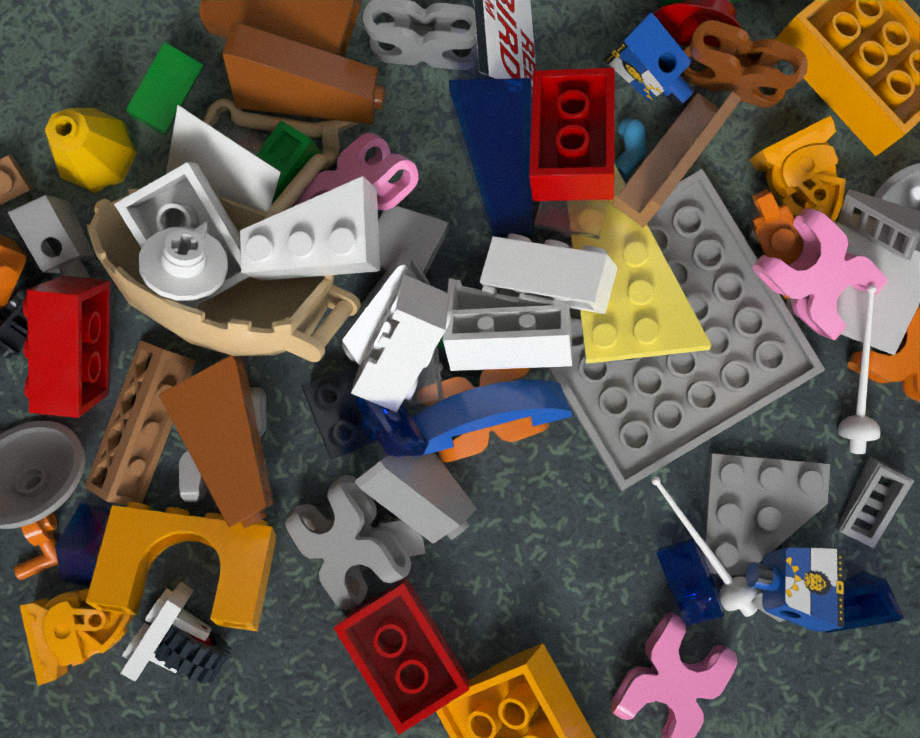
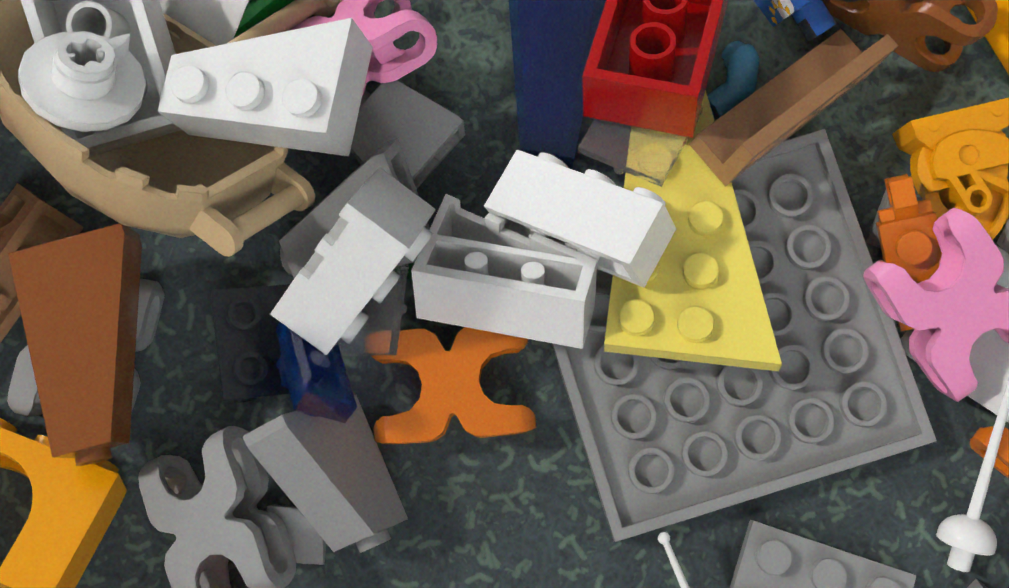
camera: 15 degrees right, 5 degrees down
(491, 406) = (457, 379): blue slope -> none

